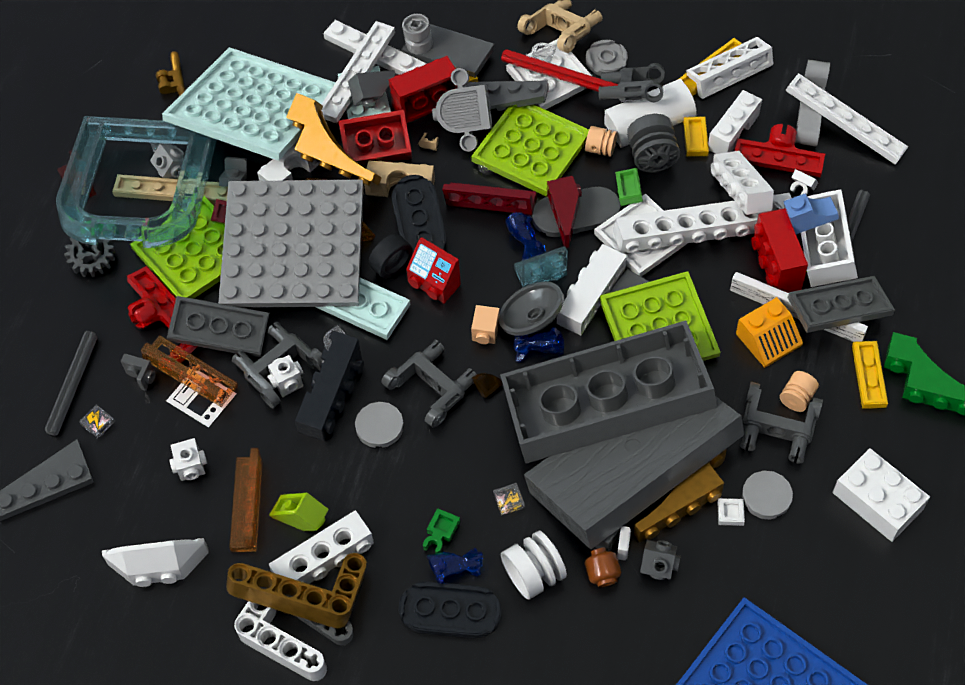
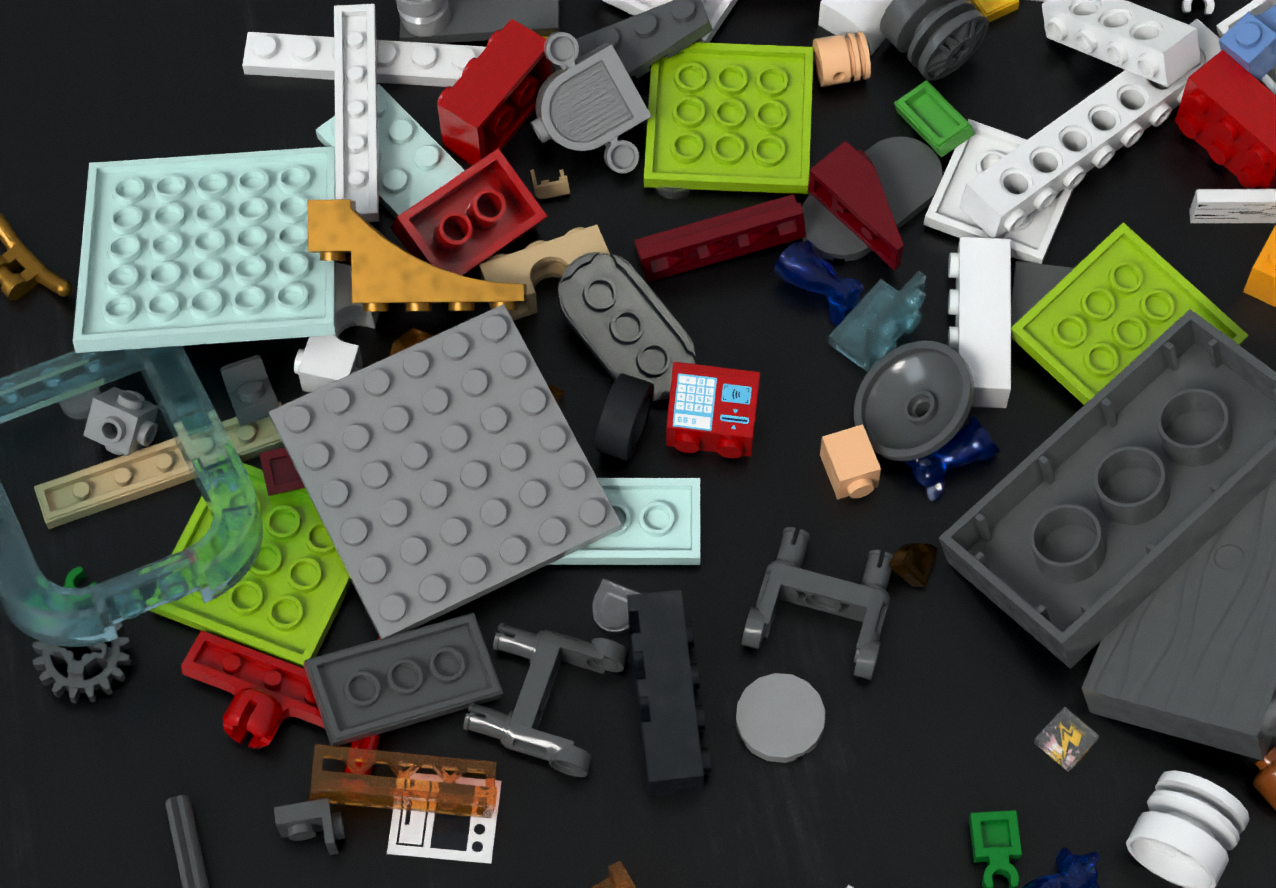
camera: 30 degrees left, 5 degrees up
(285, 375) = (579, 721): white brick -> none
(369, 86) = (404, 132): dark grey slope -> none

